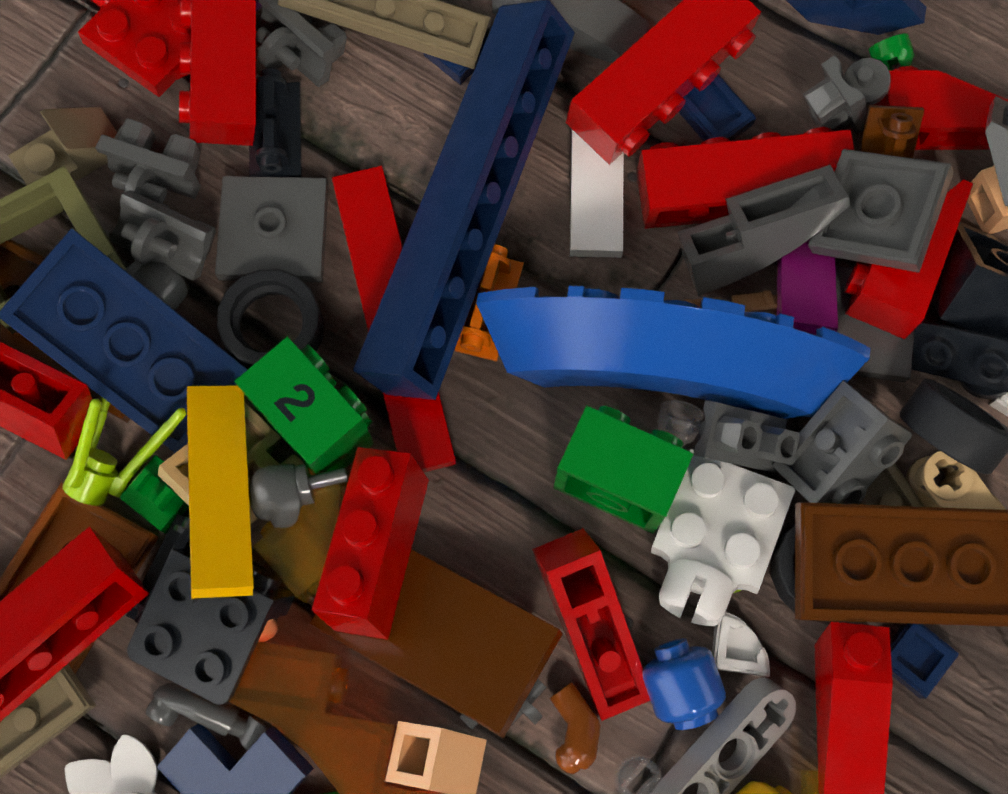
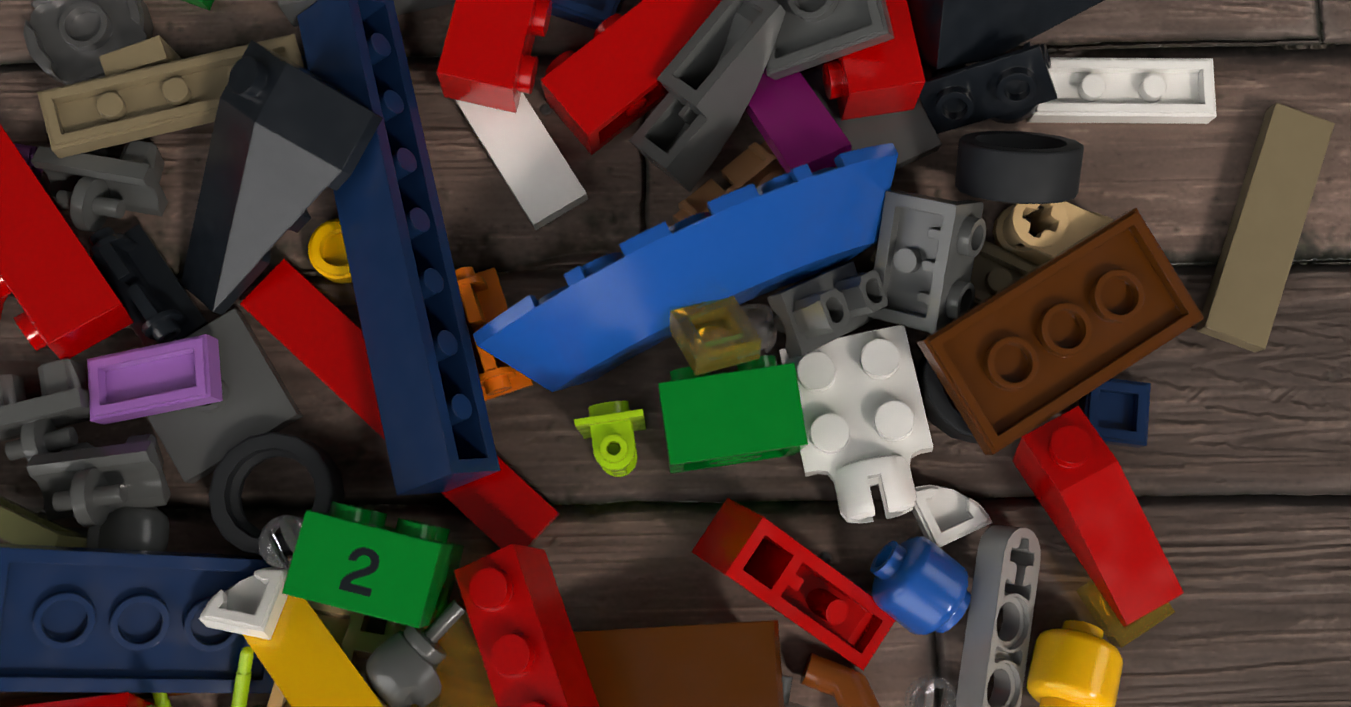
camera: 35 degrees left, 5 degrees up
(204, 381) = (250, 605): none -> white tile
(242, 191) = (154, 379): none -> medium lavender tile
(244, 348) = (268, 544): none -> clear hinge
(414, 181) = (328, 252): none -> yellow tile
(422, 86) = (269, 157): none -> black wedge
(531, 424) = (612, 435): none -> lime hinge
(649, 397) = (715, 335): none -> clear yellow plate

